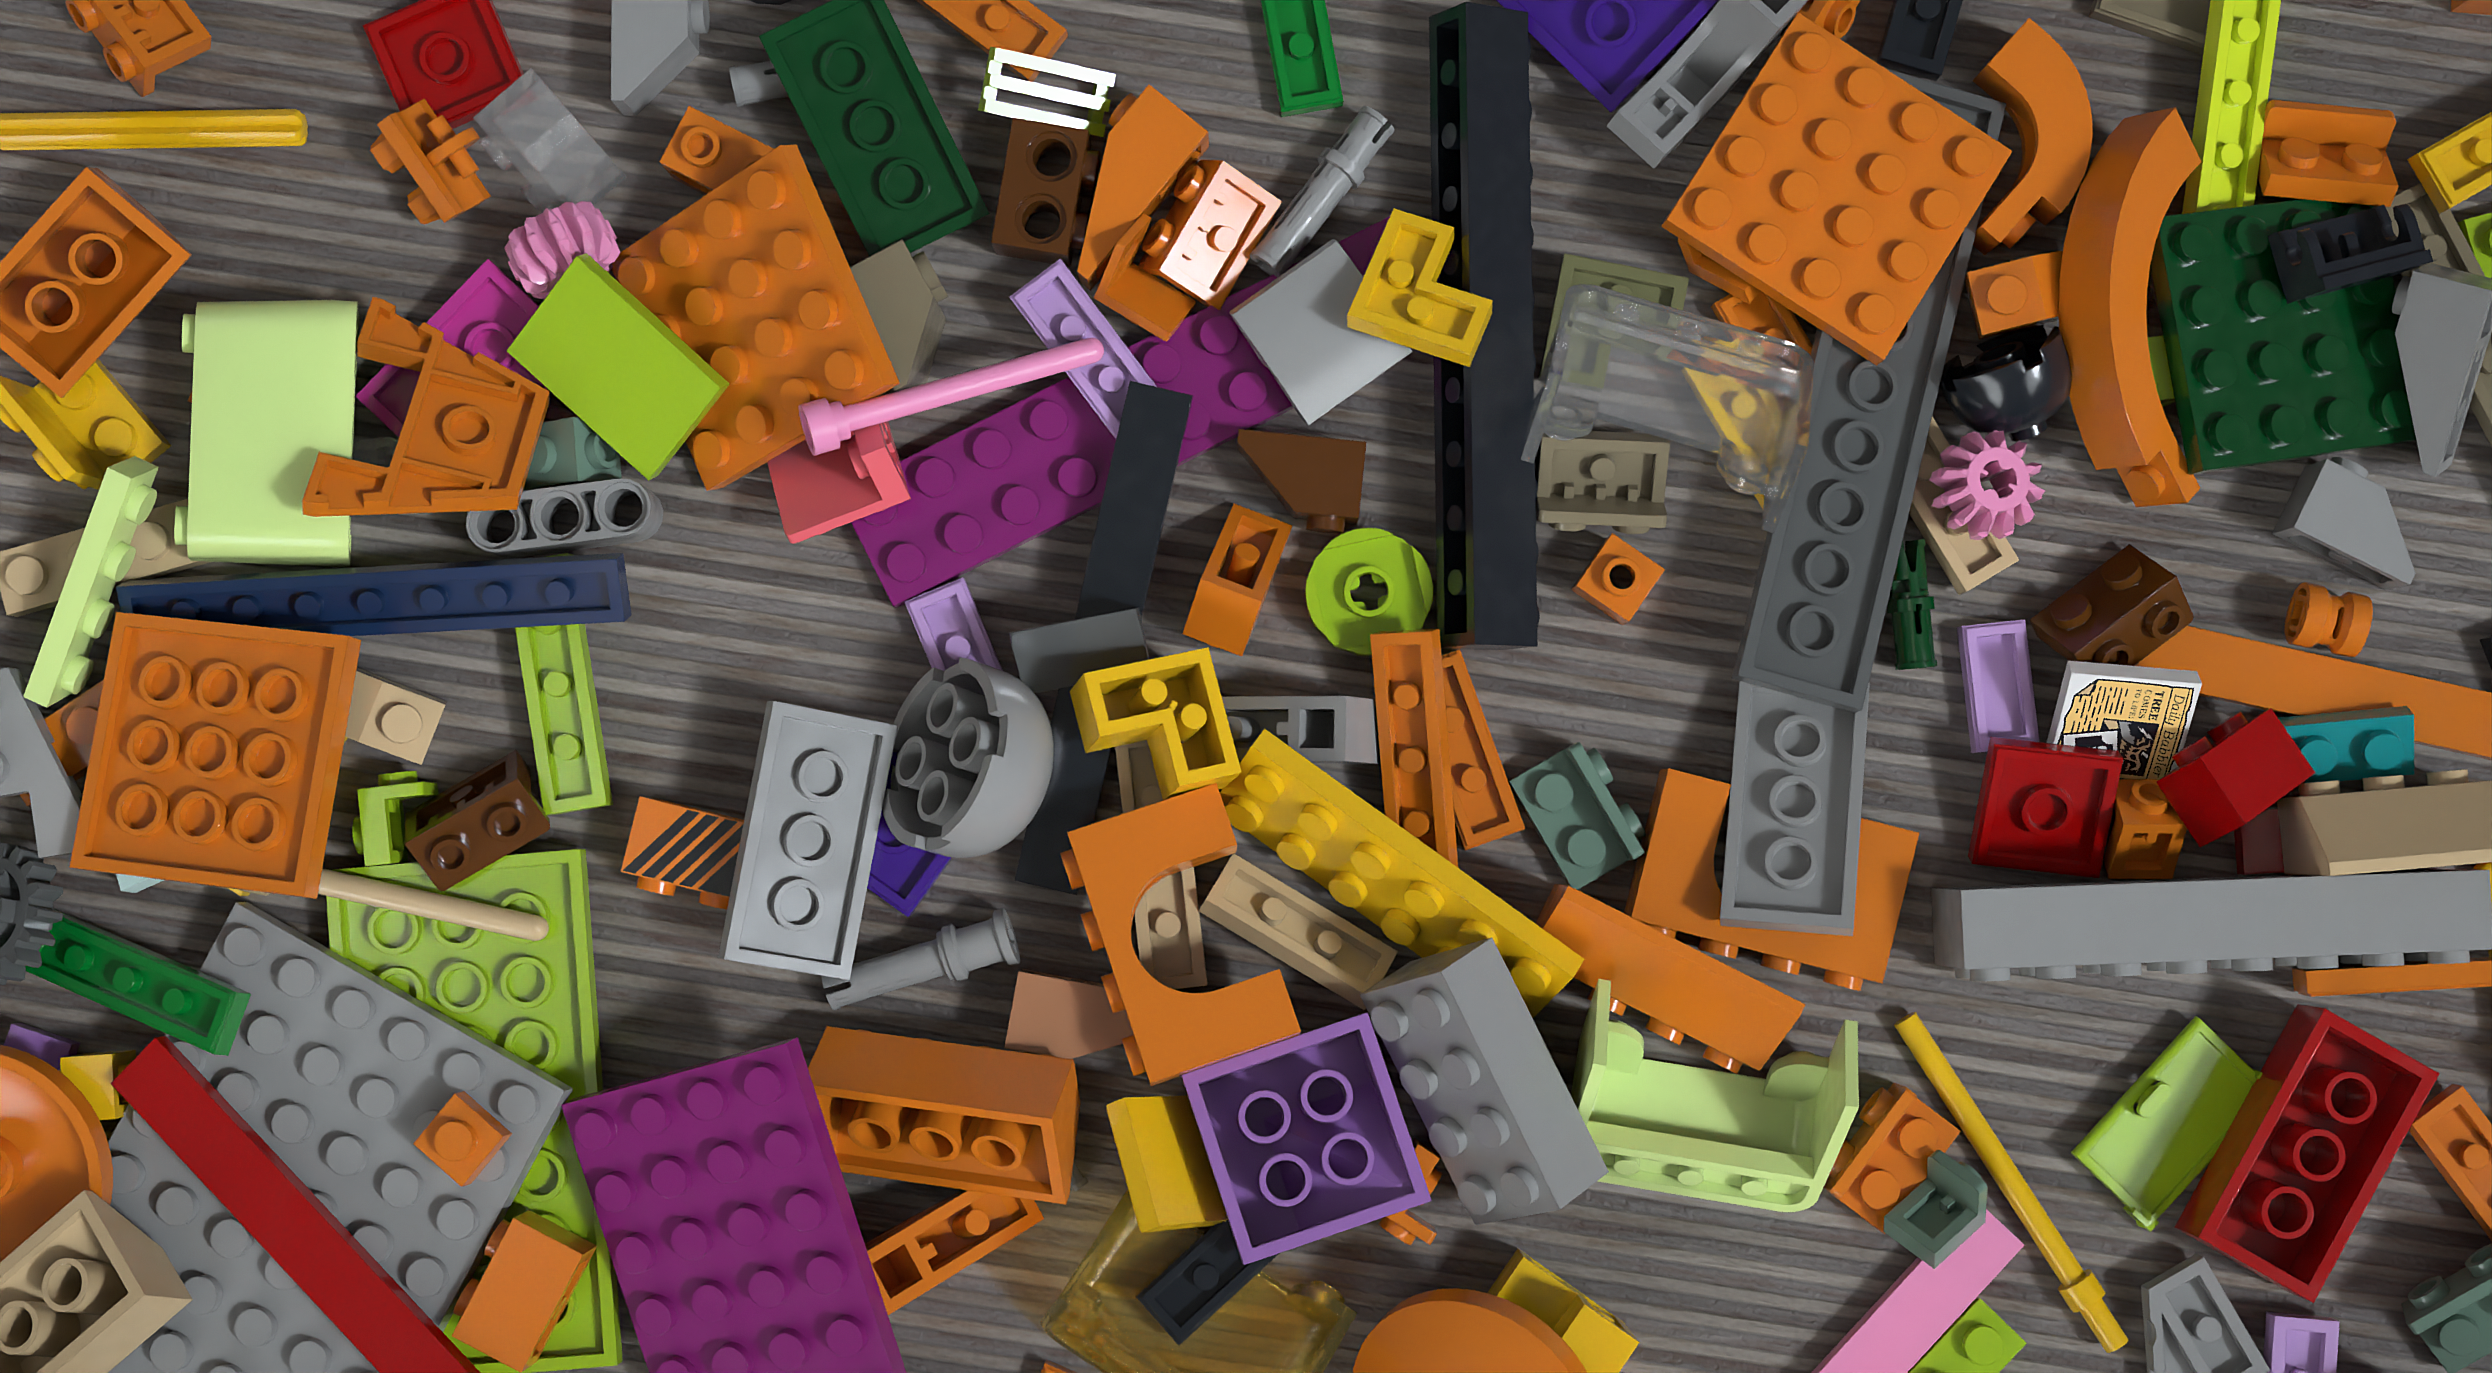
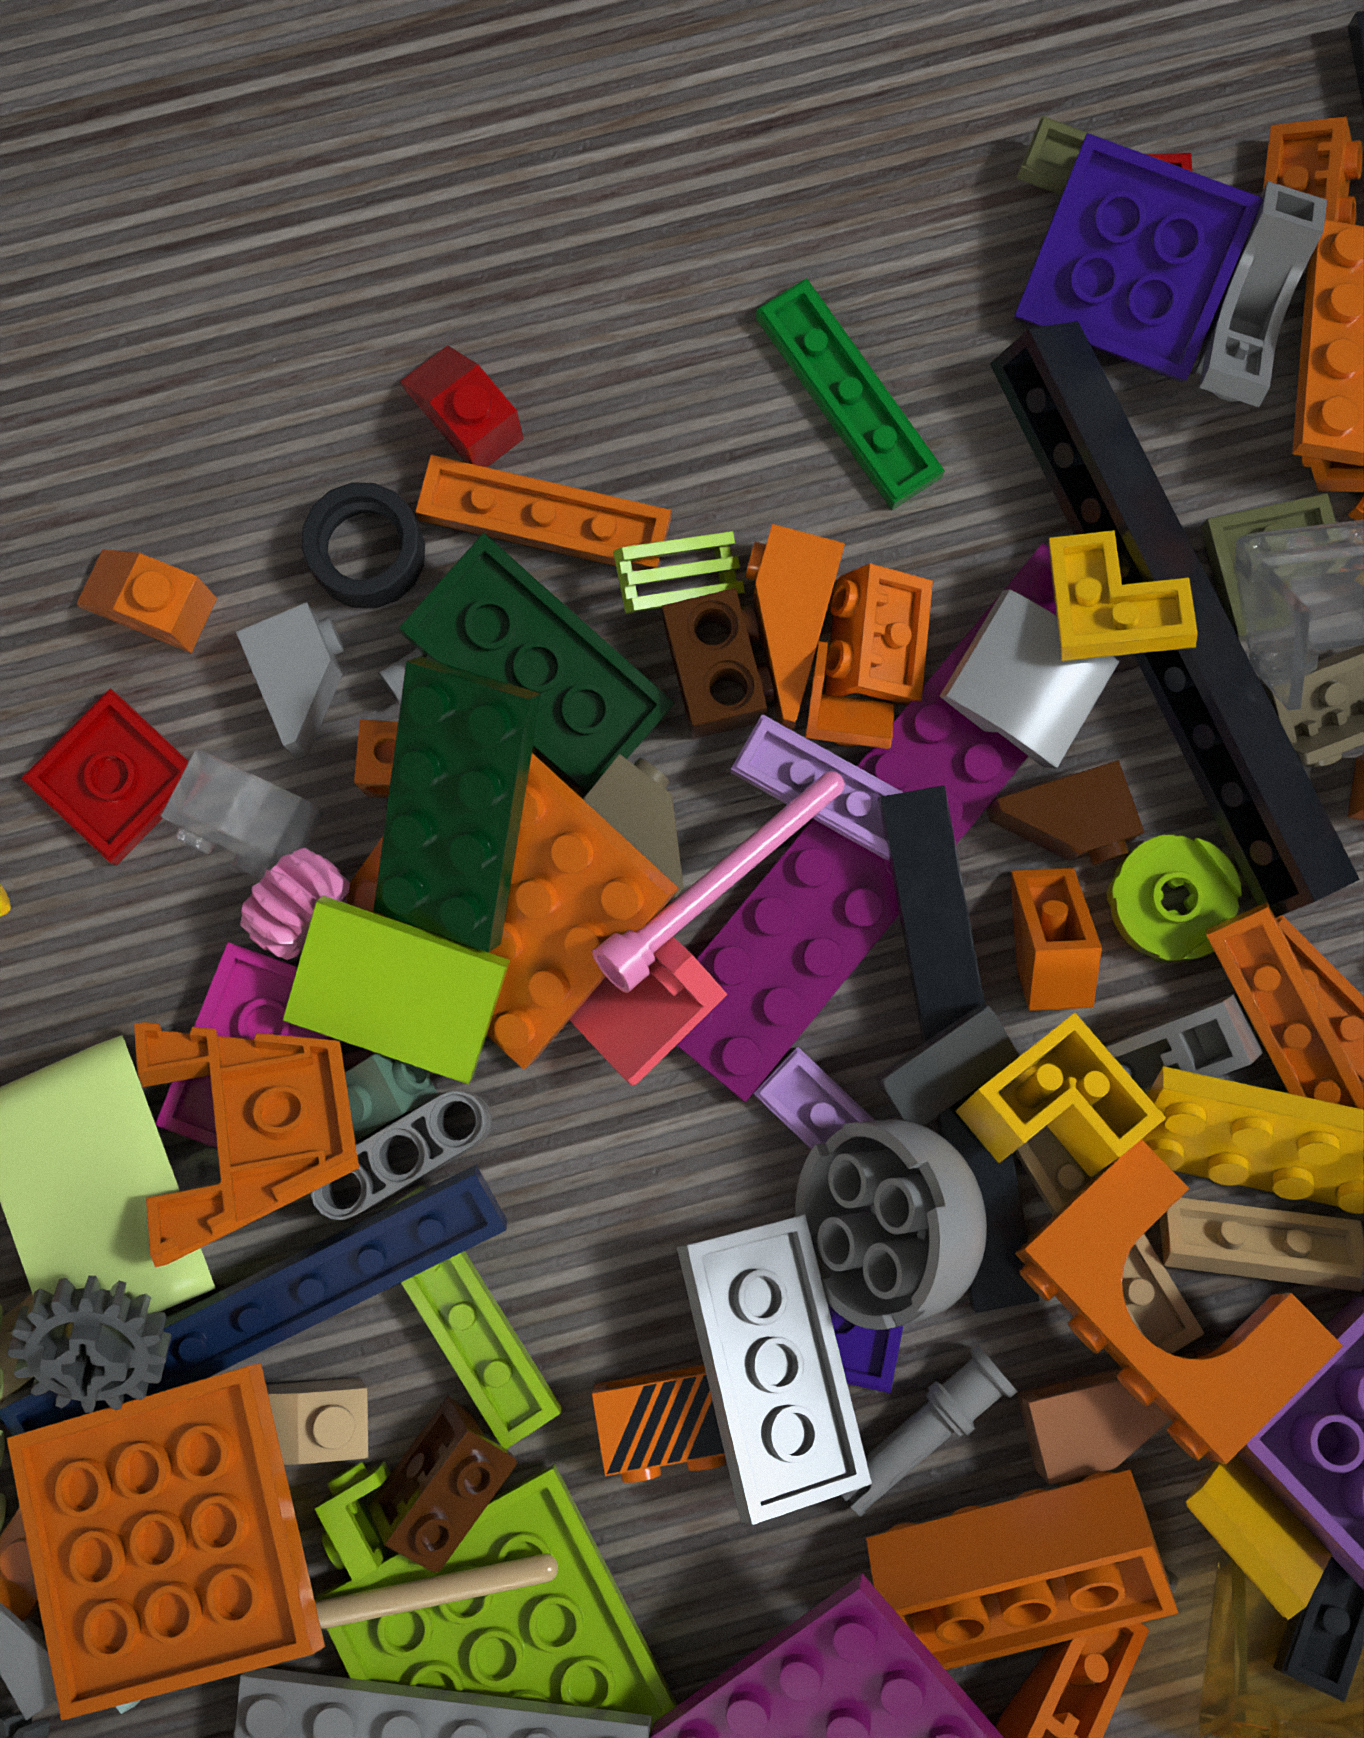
camera: 25 degrees left, 5 degrees down
(220, 557) = (89, 1344): none -> dark grey gear
(434, 159) = (139, 870): orange hips -> none
(733, 220) = (455, 802): none -> dark green plate
(1337, 173) = (968, 534): light grey pin -> none

